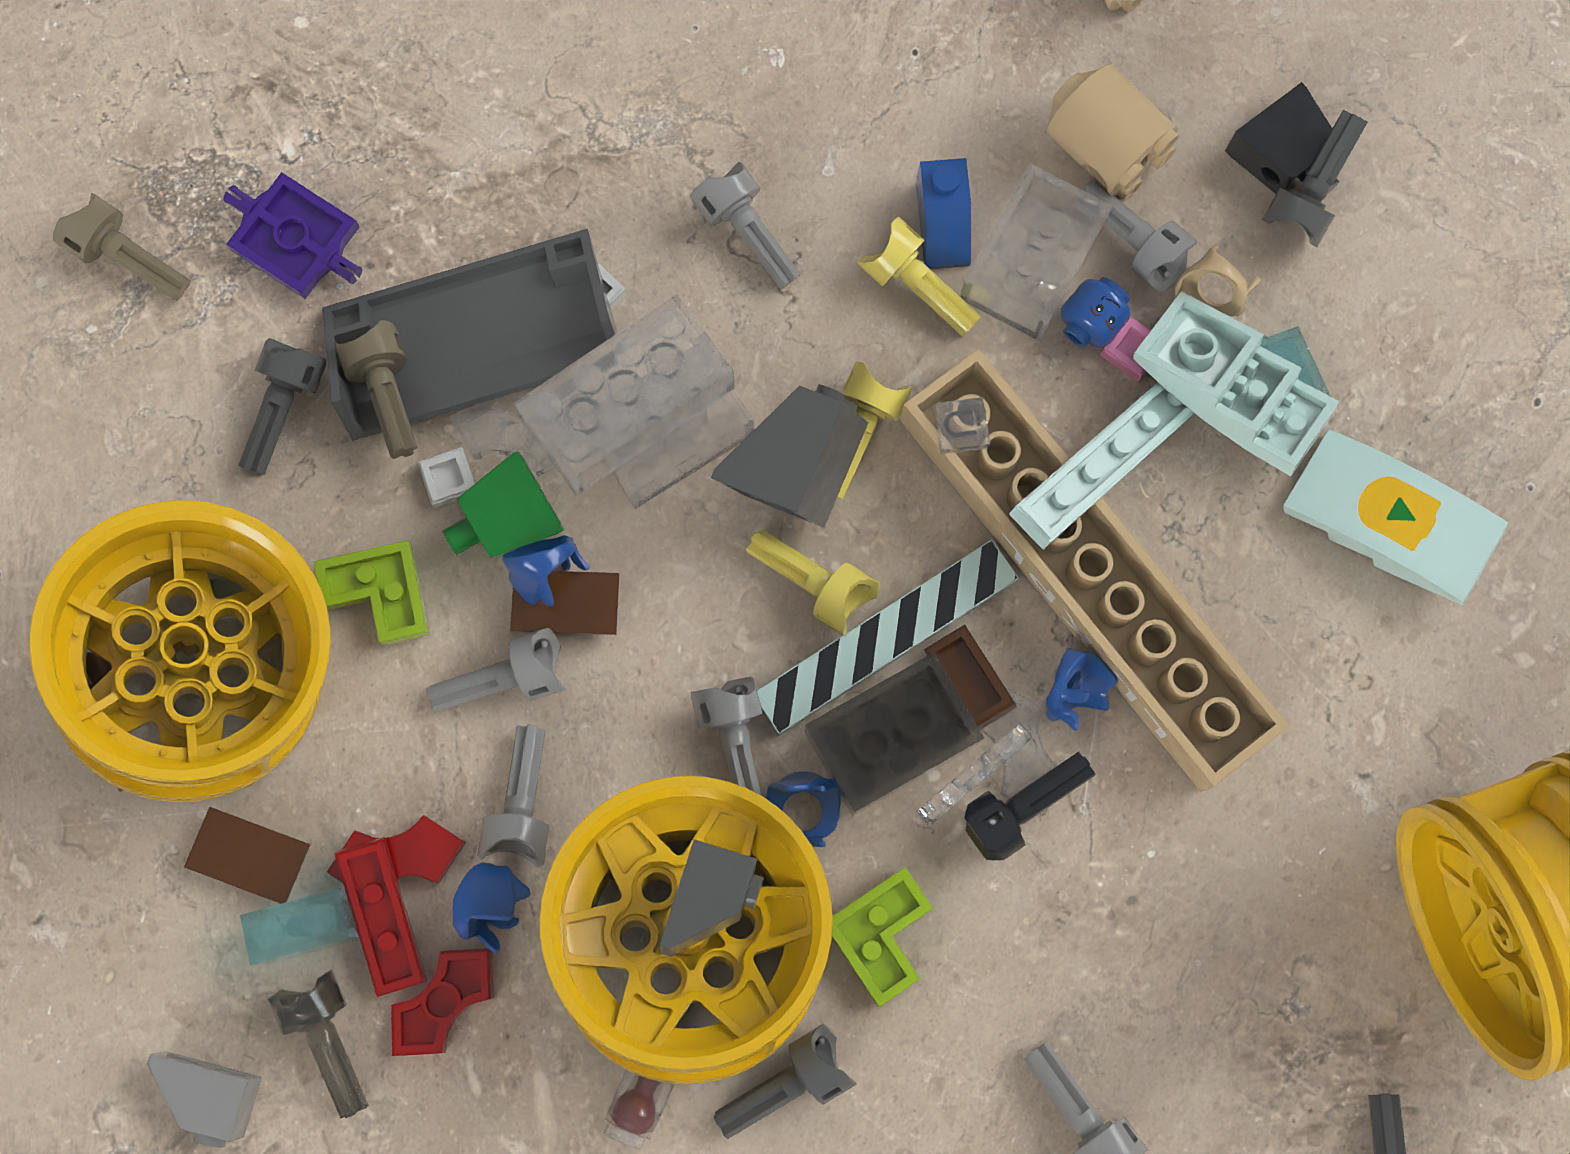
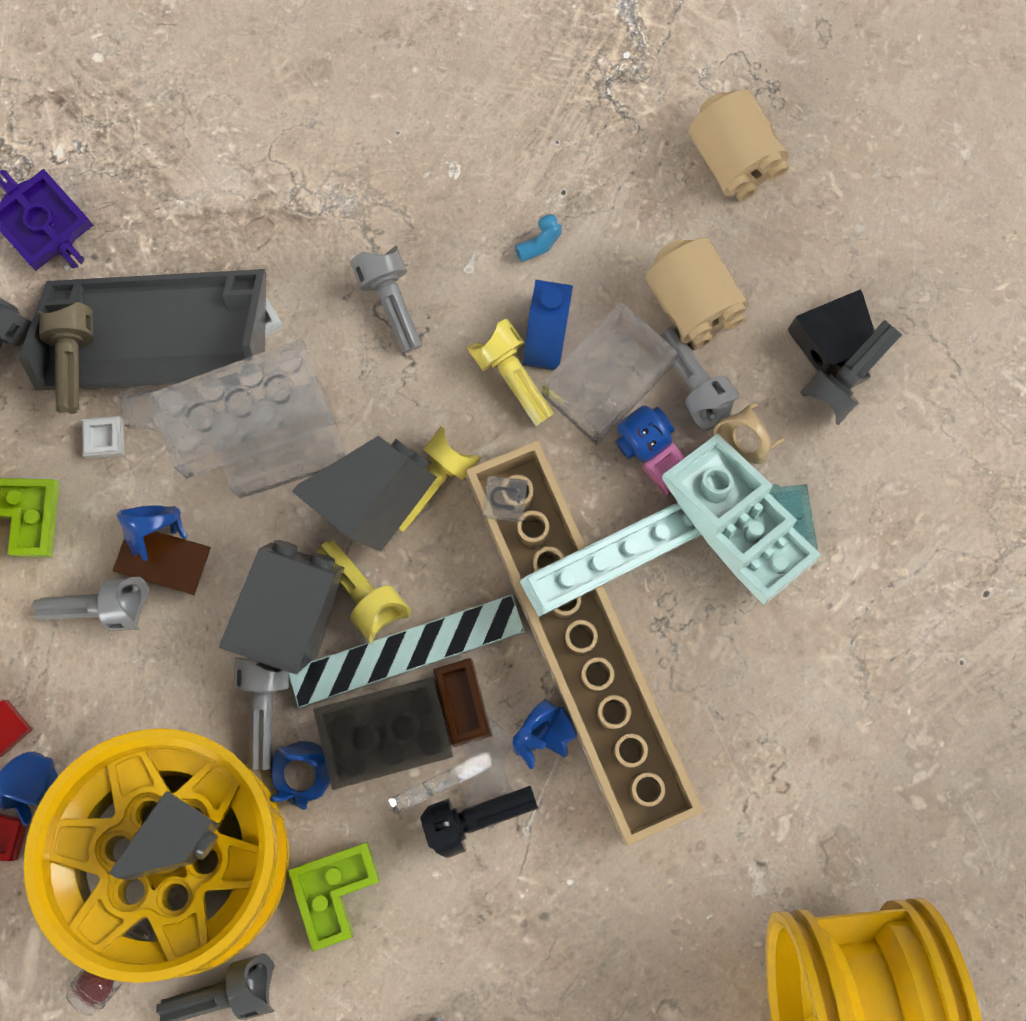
camera: 15 degrees right, 0 degrees up
(503, 511) = (134, 474): green torso -> none
(515, 828) = (69, 729): light grey piece -> none
(734, 615) = (283, 607): none -> dark grey slope
(909, 118) = (543, 242): none -> dark azure arm
(1396, 516) = (843, 660): light aqua slope -> none

